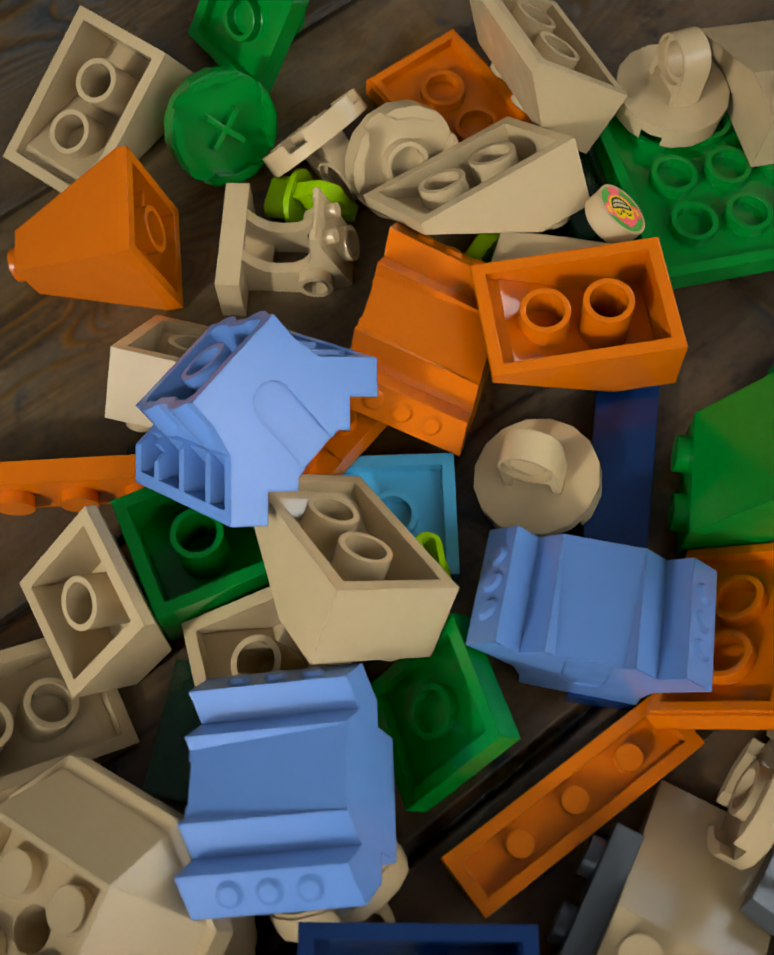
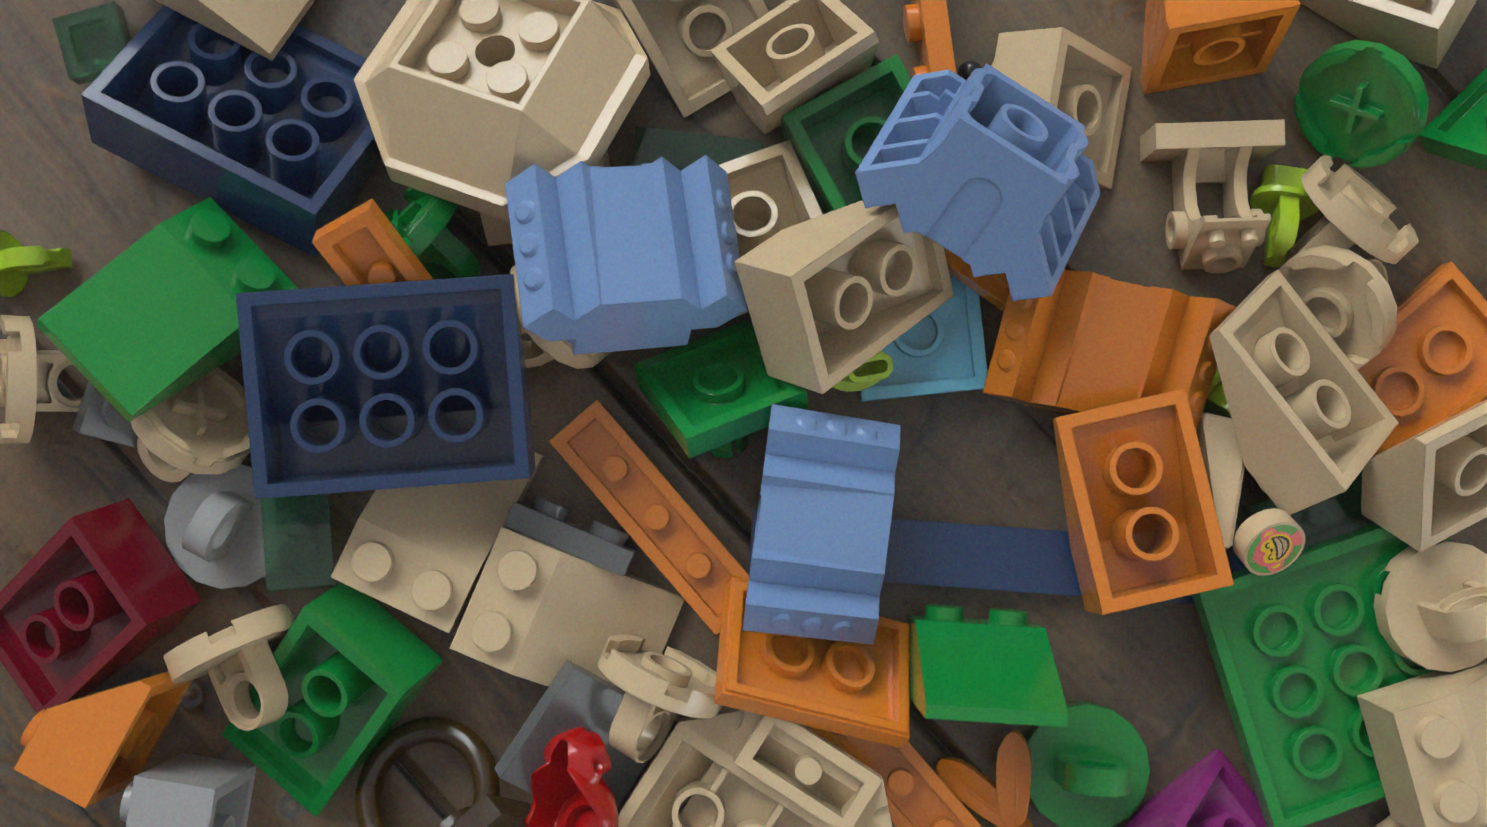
camera: 85 degrees right, 20 degrees up
(538, 477) = (969, 473): tan tile -> none

